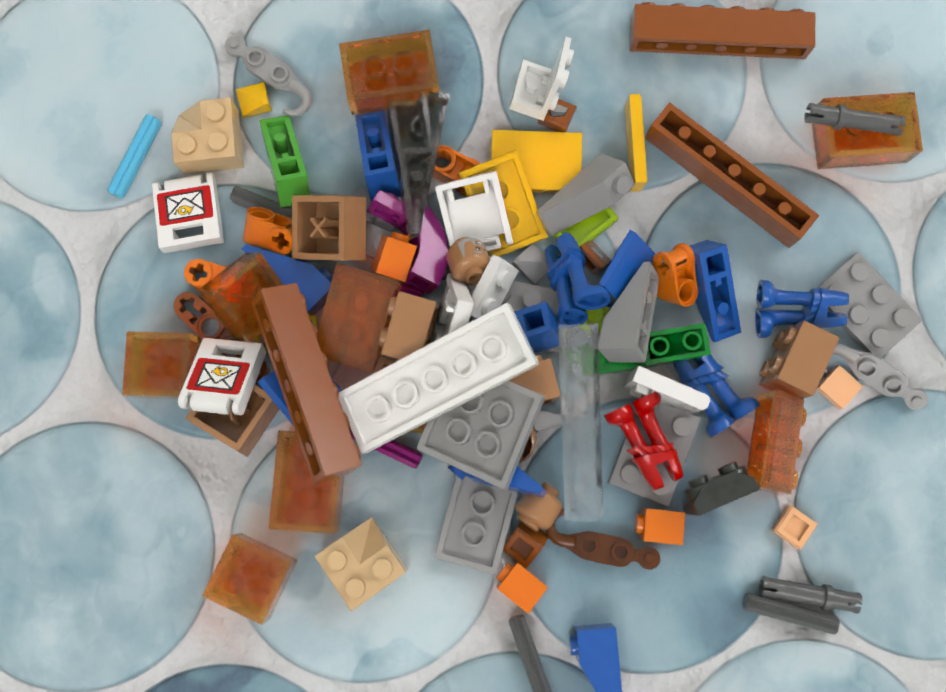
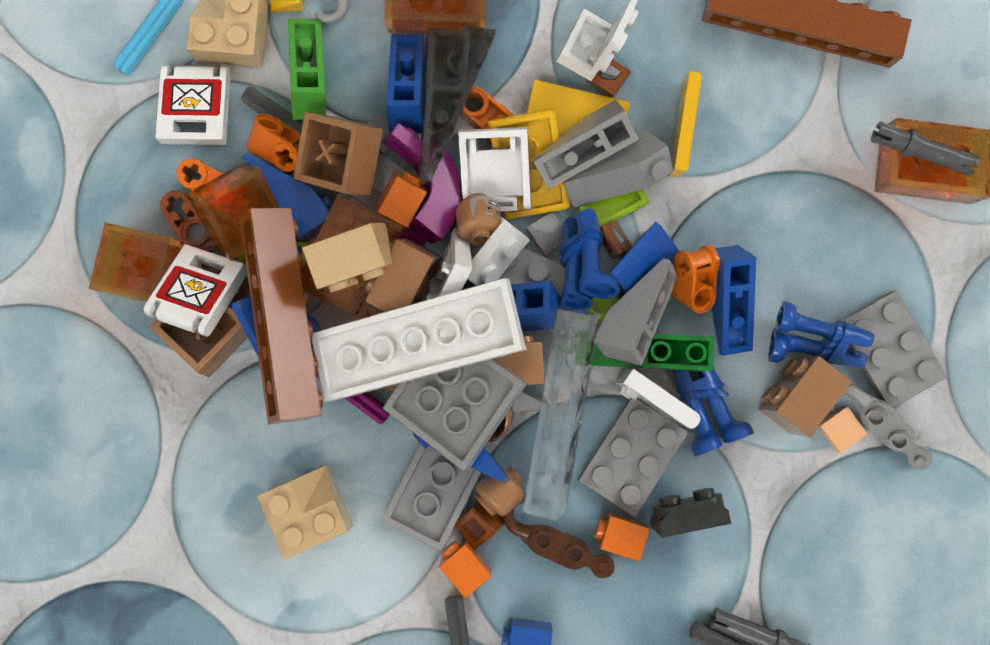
camera: 10 degrees right, 5 degrees up
(250, 578) = (187, 503): clear orange brick -> none
(295, 499) = (246, 433): clear orange brick -> none
(359, 313) = (346, 256): none -> tan slope
(551, 175) = (586, 144): none -> light grey slope
(645, 455) = (623, 462): red piece -> none
(730, 176) = (778, 181): dark orange brick -> none
(776, 441) = (761, 475): clear orange slope -> none
(794, 527) = (761, 564): light nougat tile -> none

